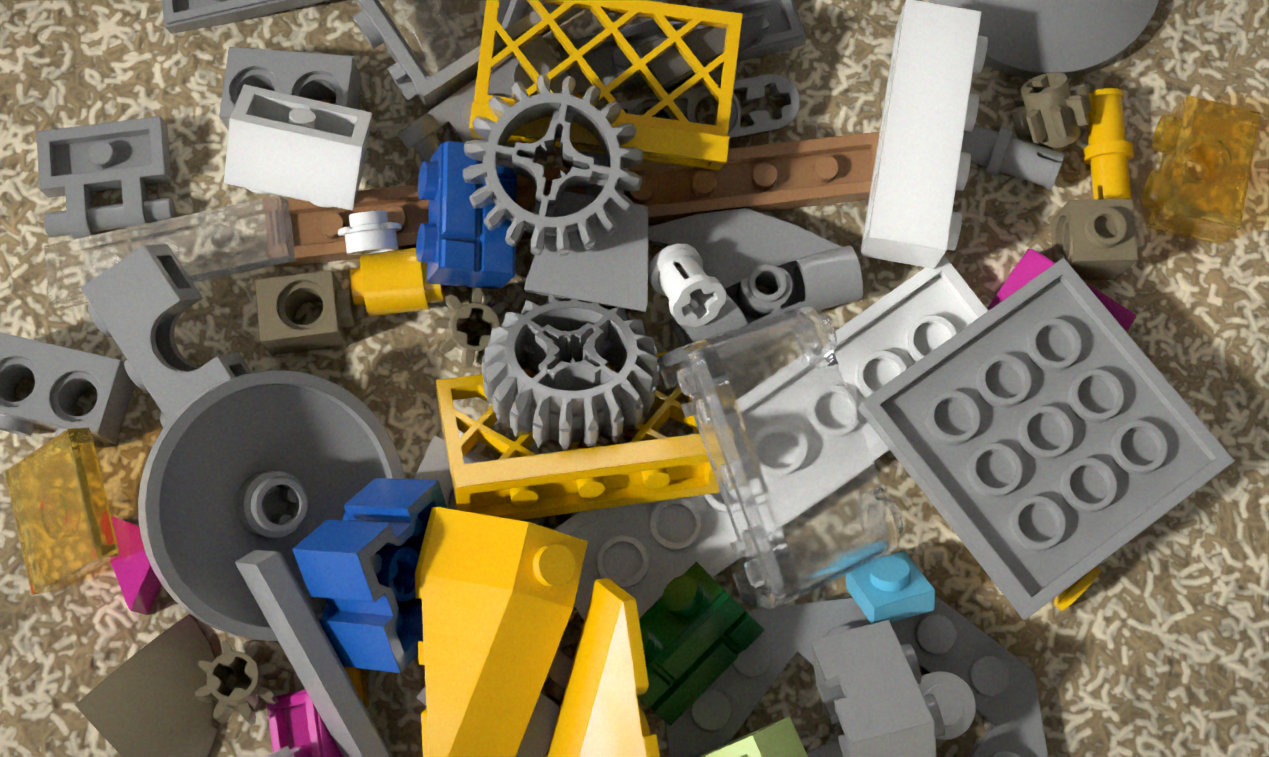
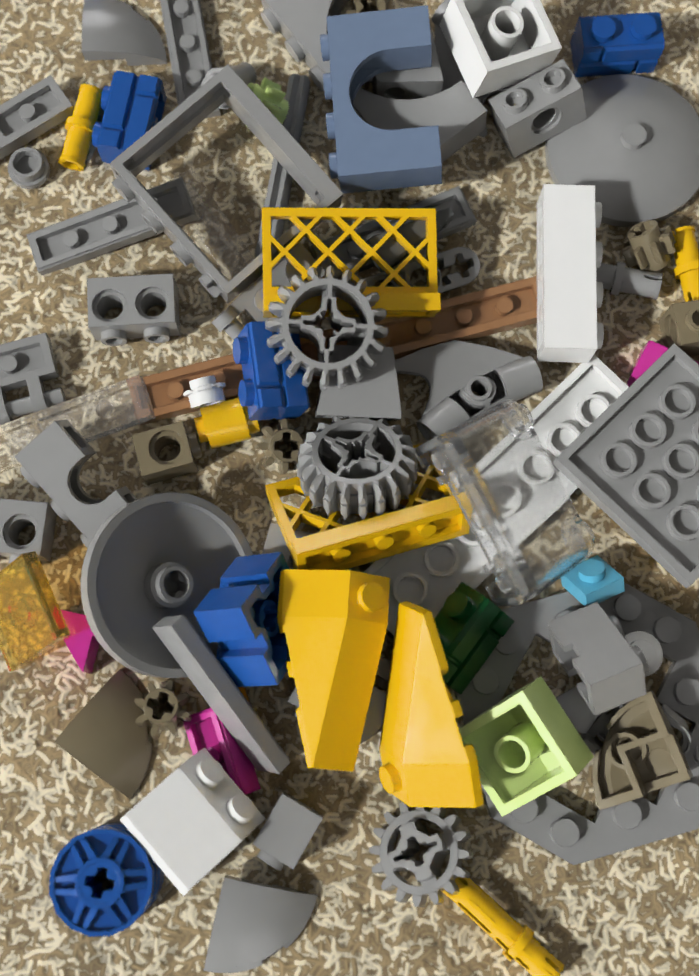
camera: 10 degrees left, 0 degrees up
(296, 147) = (147, 340): white brick -> none
(669, 282) = (425, 397): white bush -> none

